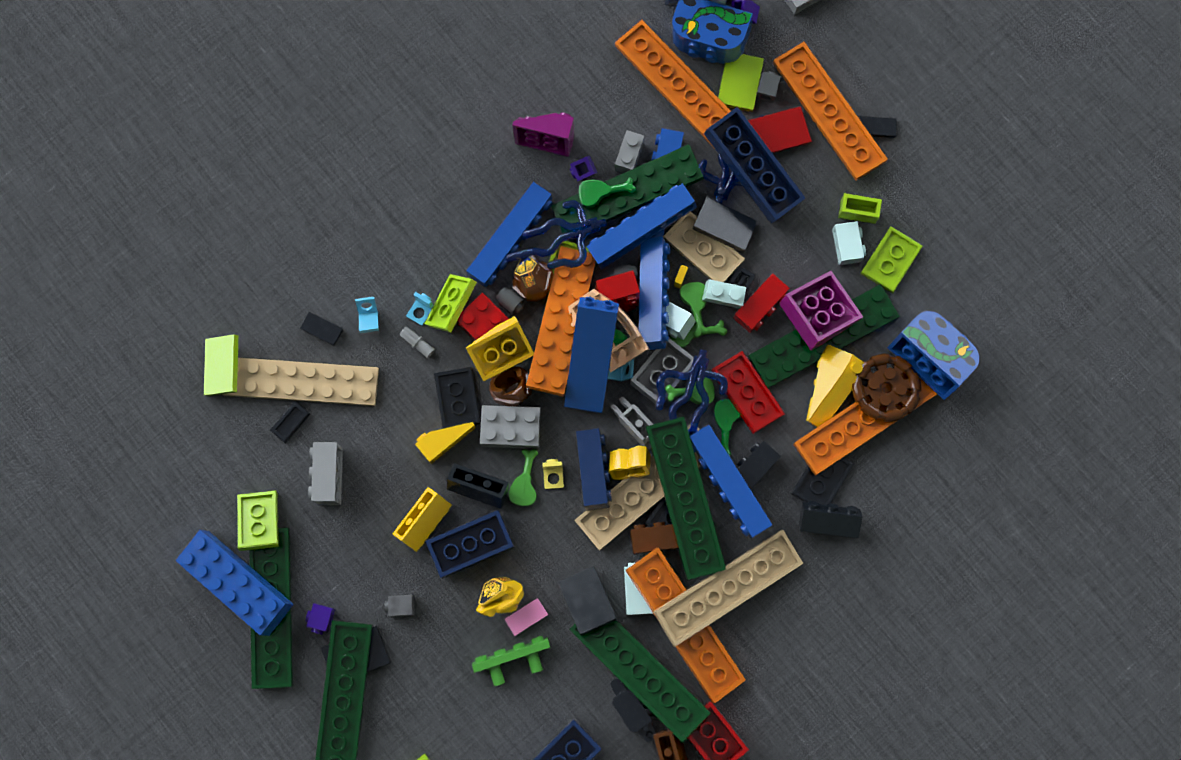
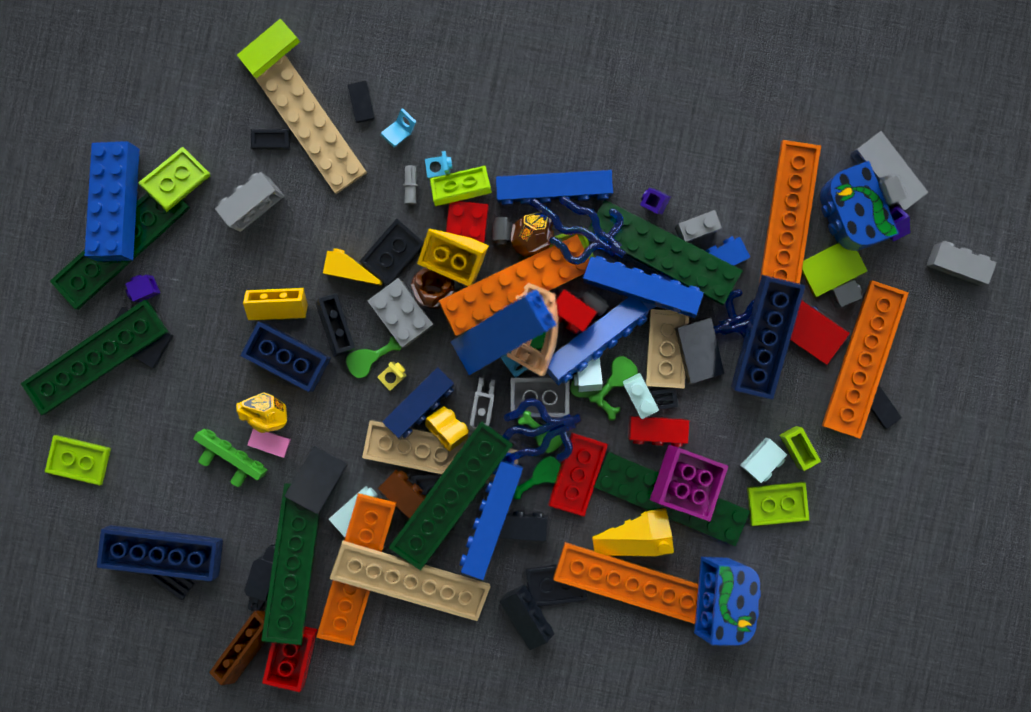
camera: 50 degrees right, 10 degrees up
(400, 605) = (199, 341): flat silver brick -> none
(546, 133) = (661, 149): magenta slope -> none
(593, 191) = (642, 225): green piece -> none
(680, 276) = (629, 349): yellow tile -> none
(898, 388) = (667, 593): reddish brown plate -> none

